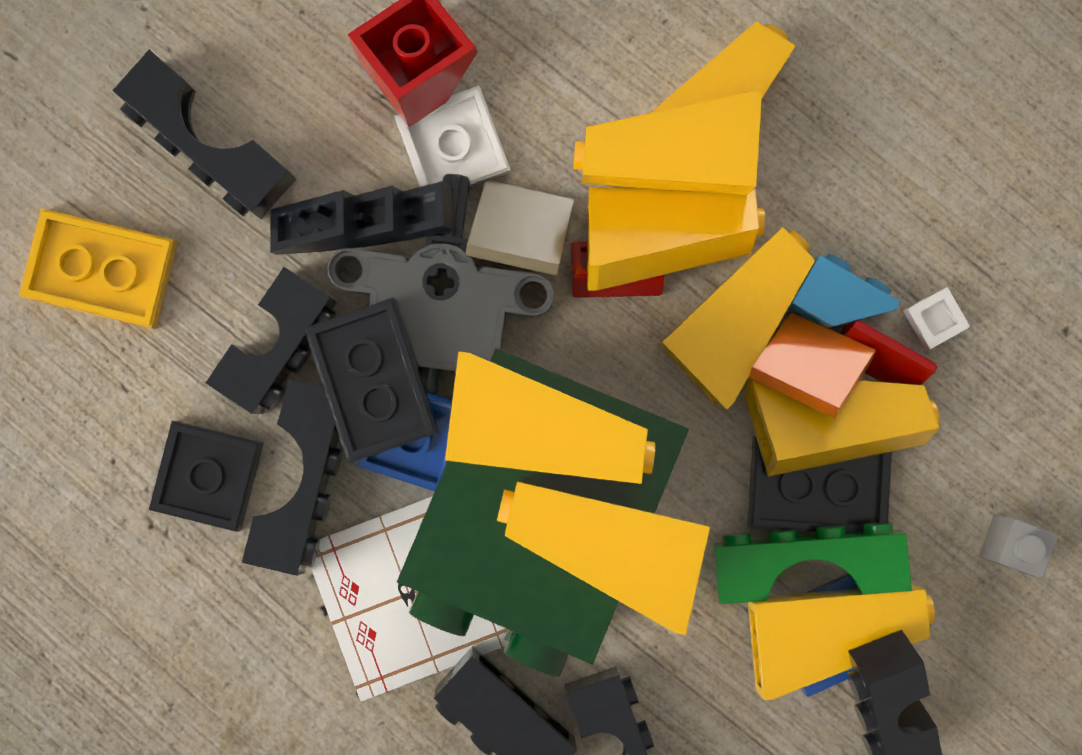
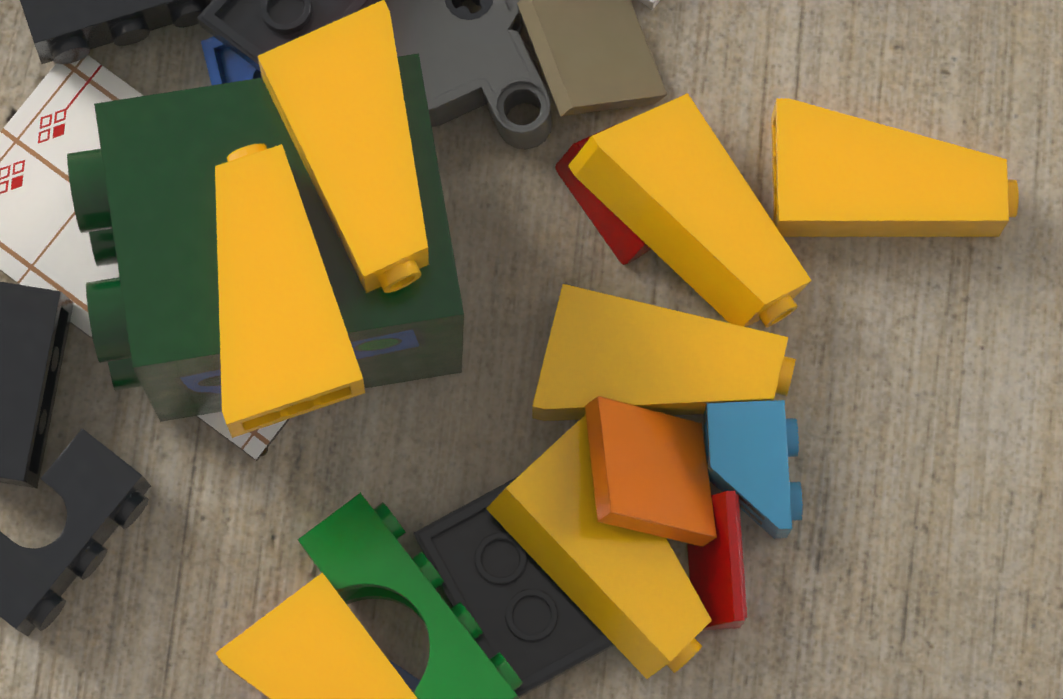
camera: 65 degrees right, 10 degrees down
(681, 148) = (794, 155): yellow slope -> none
(936, 318) = (805, 596): white plate -> none

